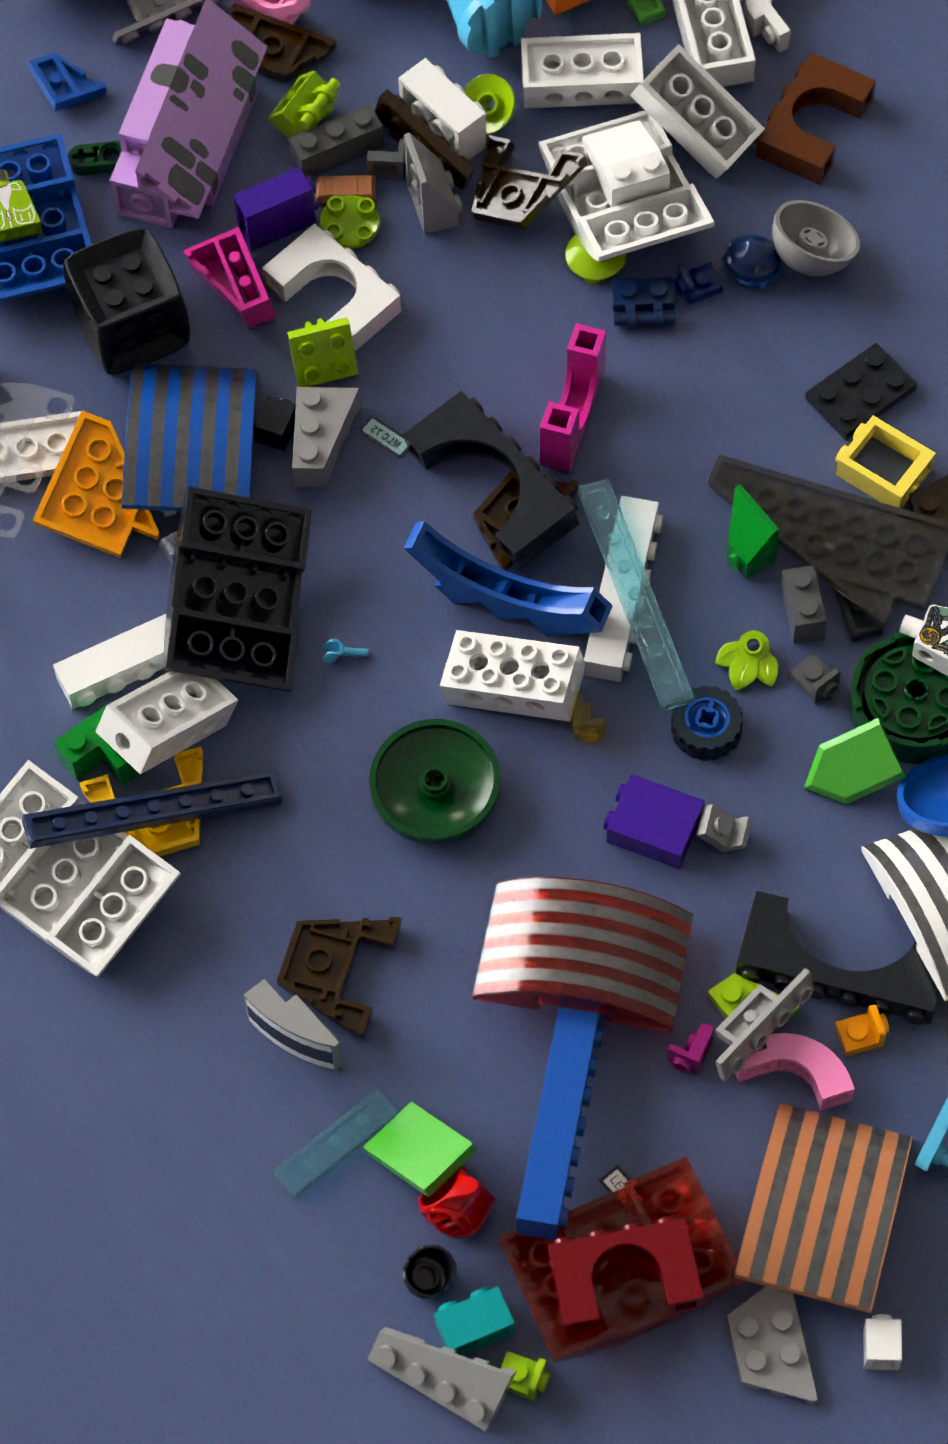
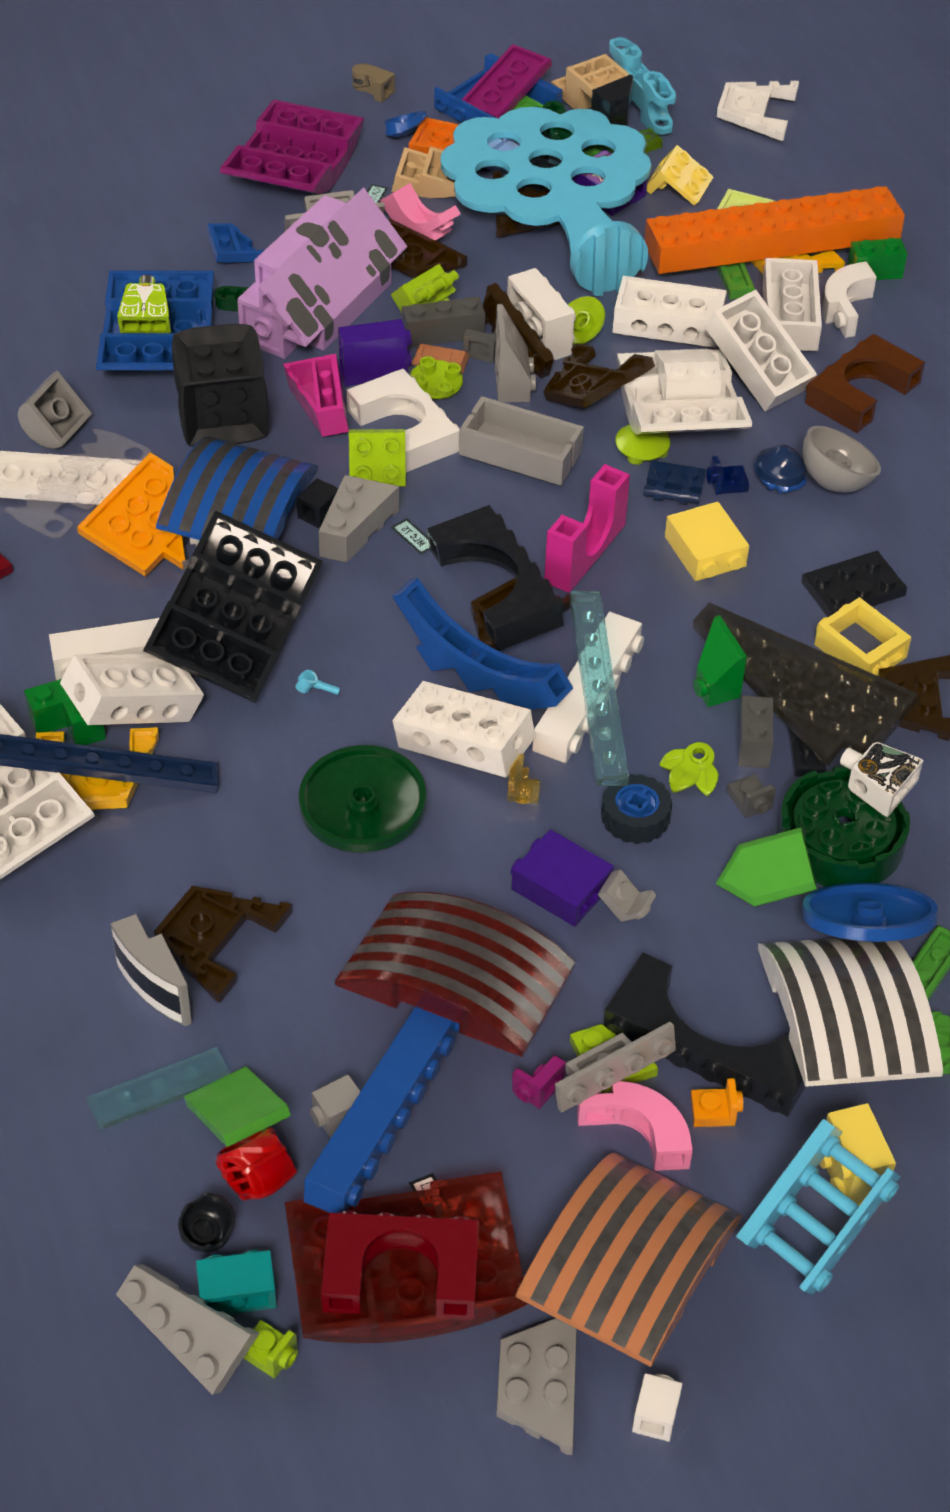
camera: 10 degrees right, 15 degrees down
(468, 290) = (521, 440): none -> light grey piece
(511, 1122) = (332, 1103): none -> light grey brick
(697, 374) = (706, 541): none -> light yellow brick

